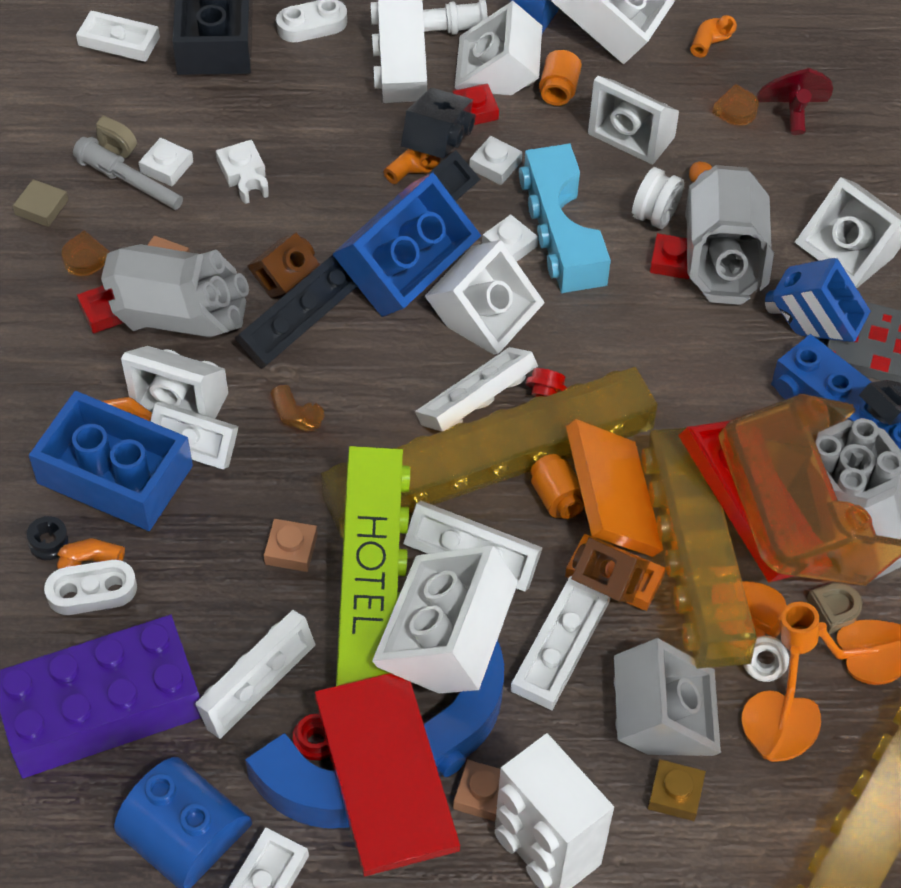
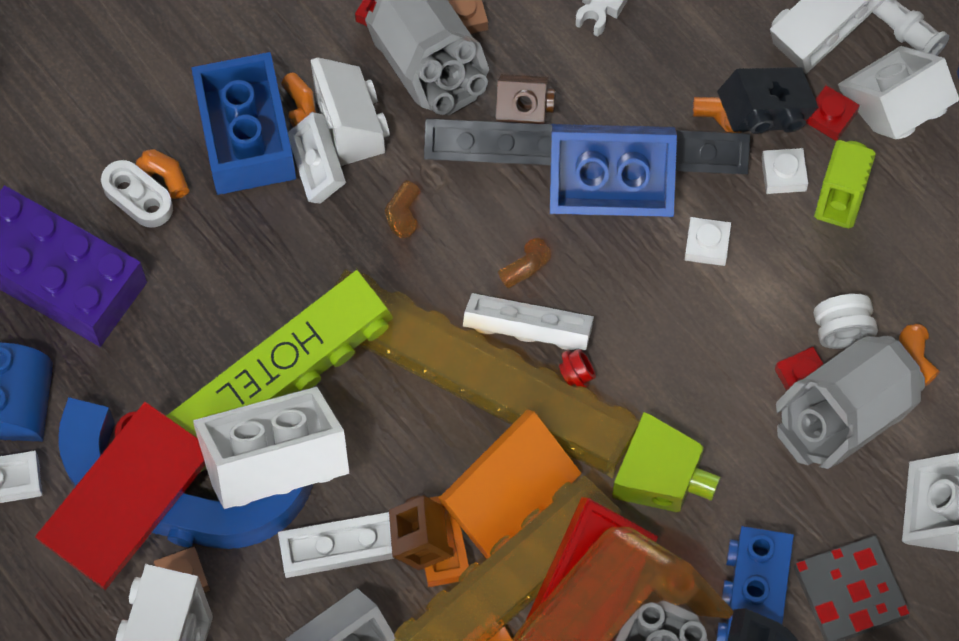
camera: 55 degrees right, 10 degrees up
(44, 525) = (150, 125): black bush -> none
(255, 674) = (150, 353): white plate -> none
(290, 545) = (282, 296): nougat plate -> none
(426, 360) = (526, 266): none -> clear orange arm
(441, 531) = (379, 422): white plate -> none
(485, 296) = (625, 265): white slope -> none
(551, 115) = (844, 183): none -> lime brick
(557, 486) = (481, 437): orange brick -> none
(560, 77) = (918, 154): orange brick -> none
(575, 252) = (793, 229): medium azure arch -> none
(631, 120) = (920, 241): white slope -> none
(682, 382) = (662, 468): none -> lime torso
(819, 301) = (834, 506): blue torso -> none

